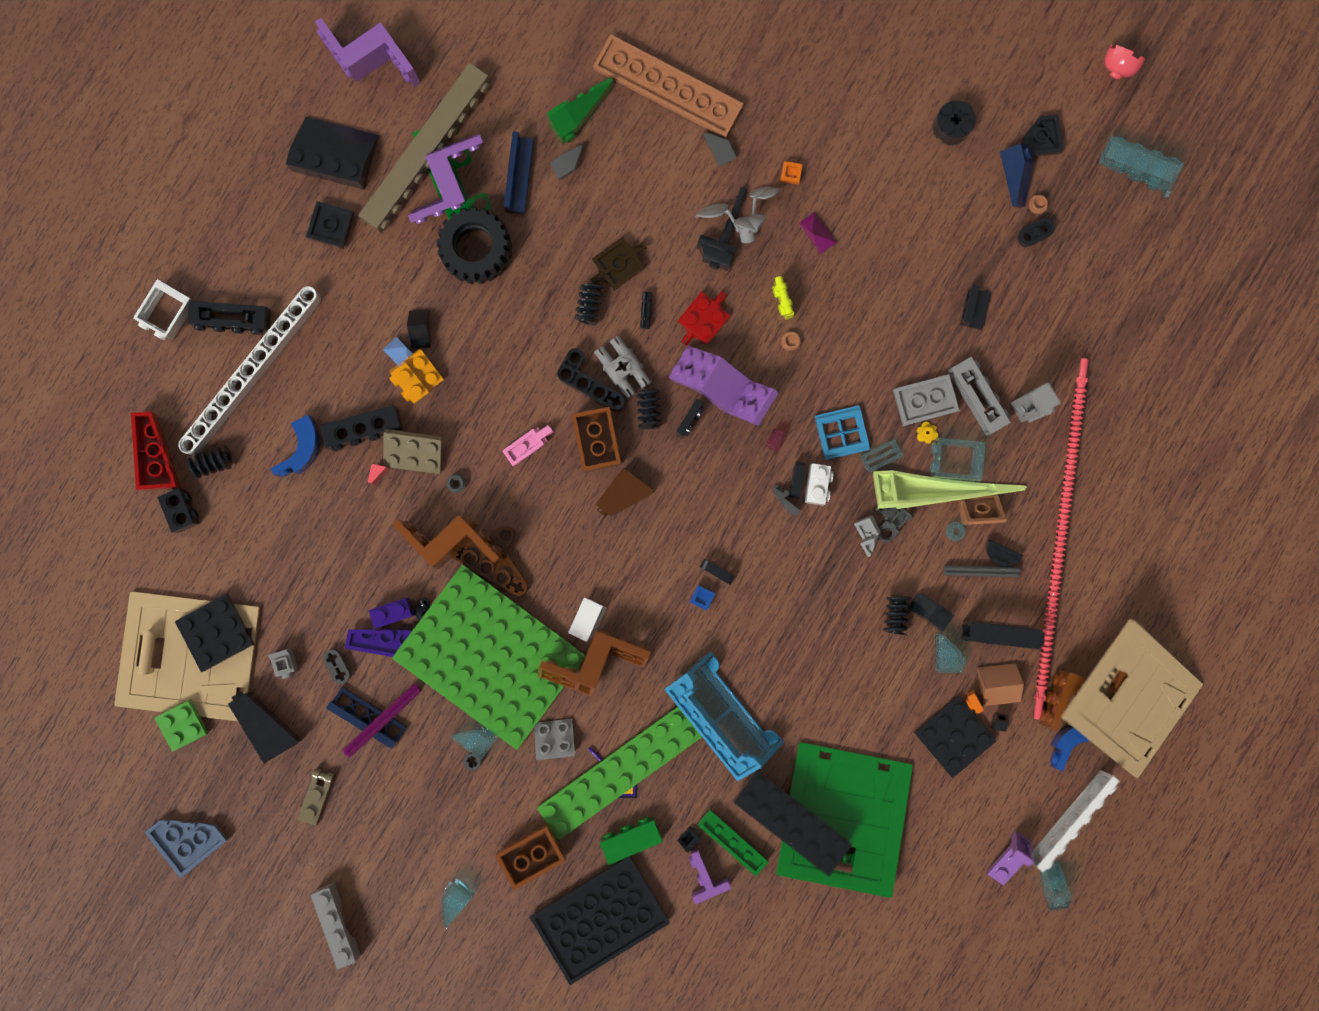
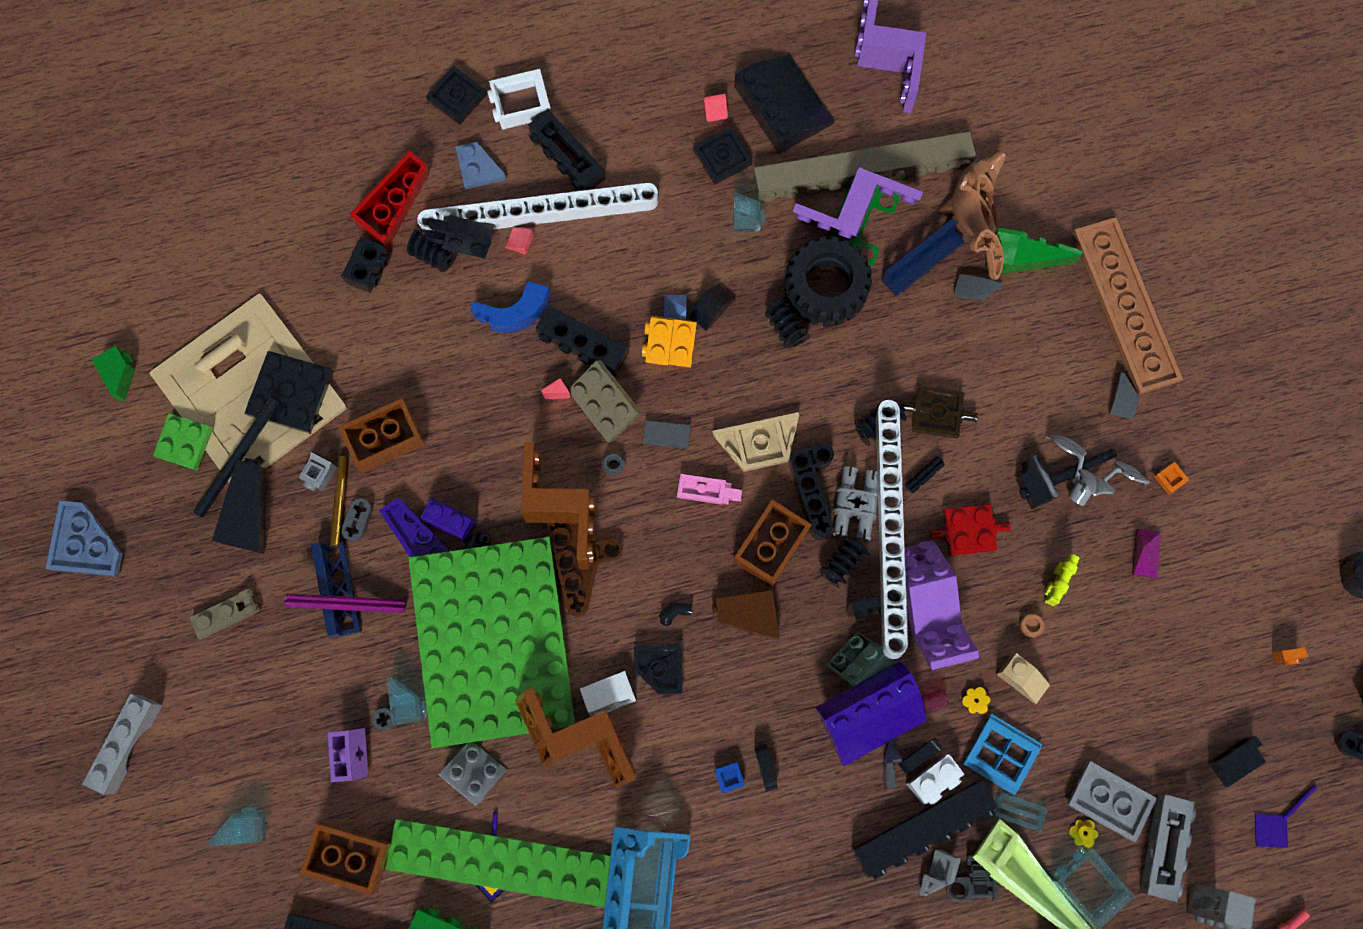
camera: 45 degrees right, 10 degrees down
(93, 725) = (115, 371): none -> green slope
(120, 346) = (456, 95): none -> black plate
(182, 380) = (477, 166): none -> sand blue wing
(219, 435) = (460, 235): none -> black hinge
(224, 700) = (238, 454): none -> black piece
(258, 401) = (520, 240): none -> coral slope
(294, 197) = (715, 107): none -> coral slope
(299, 603) = (381, 435): none -> dark orange brick
(314, 666) = (338, 501): none -> pearl gold bar
(383, 249) = (747, 214): none -> clear light blue slope
(470, 434) = (666, 434): none -> dark grey tile
(473, 801) = (347, 755): none -> medium lavender brick
(475, 297) = (785, 325): none -> black piece
(522, 111) = (976, 211): none -> nougat animal
(530, 385) = (759, 442): none -> tan wing
(576, 536) = (672, 610): none -> black arm
(602, 575) = (660, 667): none -> black plate
(648, 358) = (887, 537): none -> white beam
(716, 459) = (858, 660): none -> sand green slope
(747, 482) = (872, 713): none -> dark purple slope
(803, 412) = (979, 694): none -> yellow plant
(814, 377) = (1023, 677): none -> tan slope
(837, 518) = (925, 828): none -> black brick
(951, 217) = (1290, 656): none -> orange plate
(1027, 328) = (1272, 829): none -> dark purple piece

